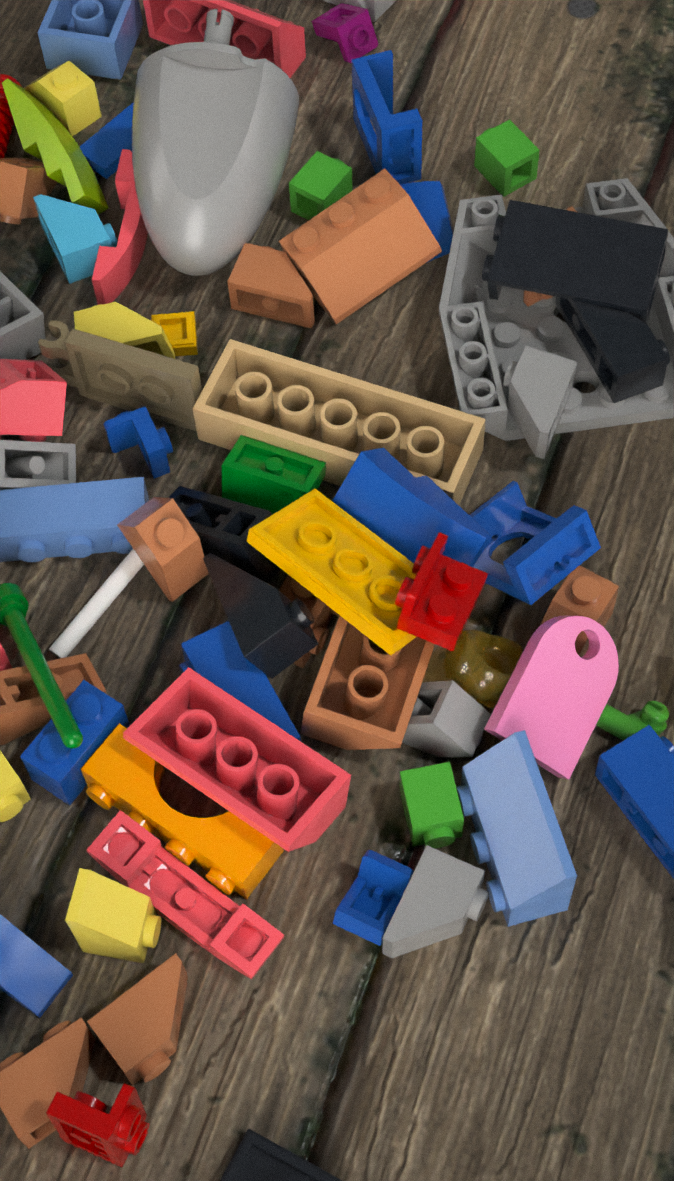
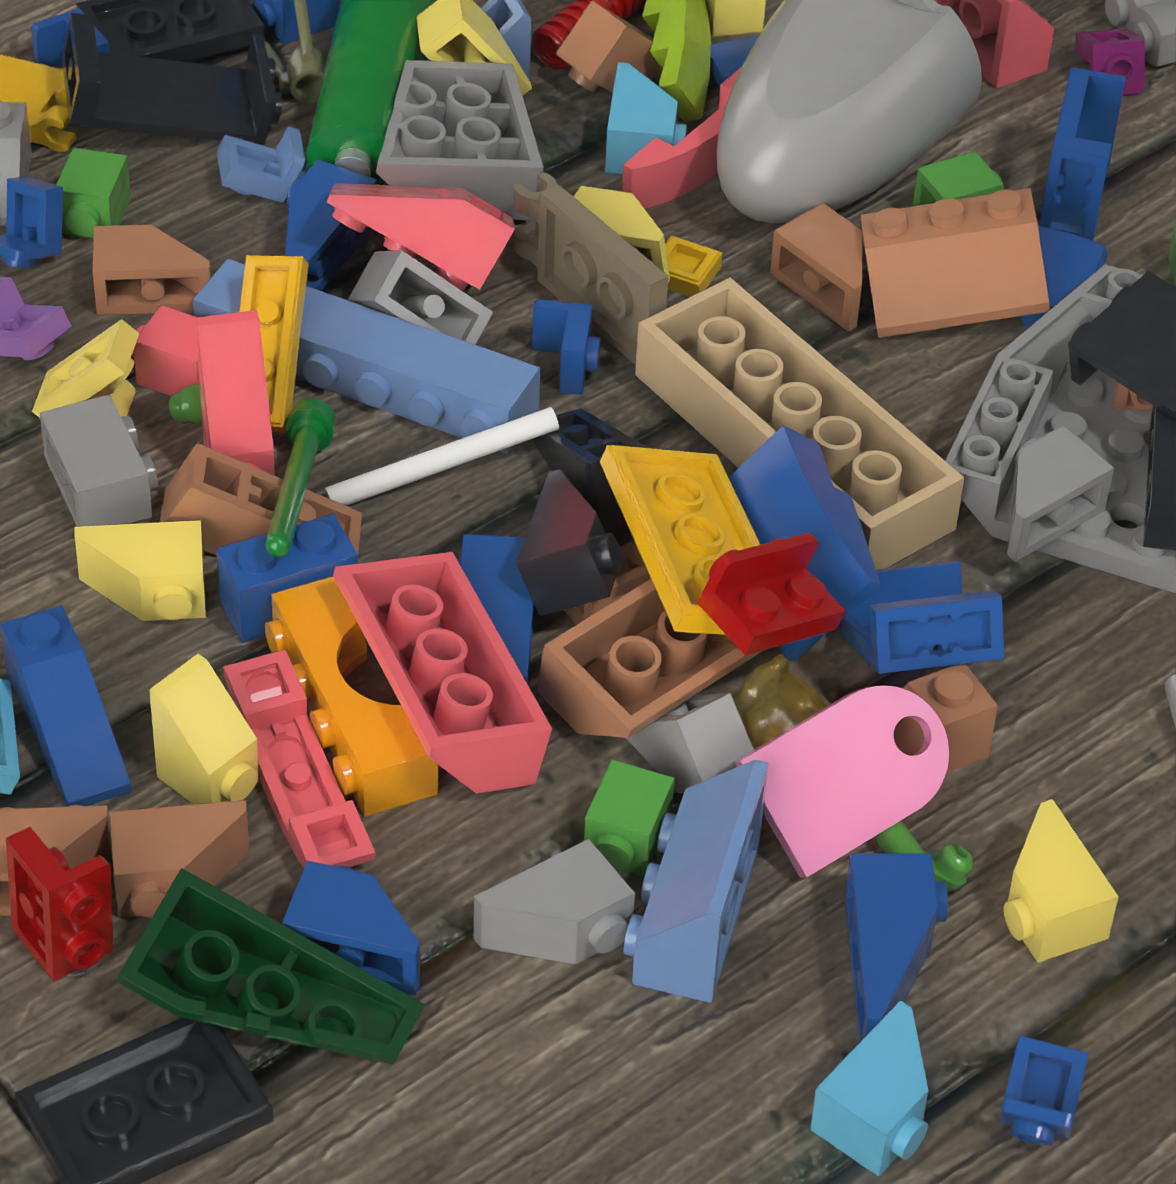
camera: 25 degrees right, 15 degrees down
(166, 545) = (514, 441): nougat slope -> none
(259, 1097) = (247, 972): none -> dark green wedge
(268, 475) = (679, 420): green panel -> none
(307, 1005) = (357, 922): none -> blue slope
(373, 897) = (478, 868): blue bracket -> none

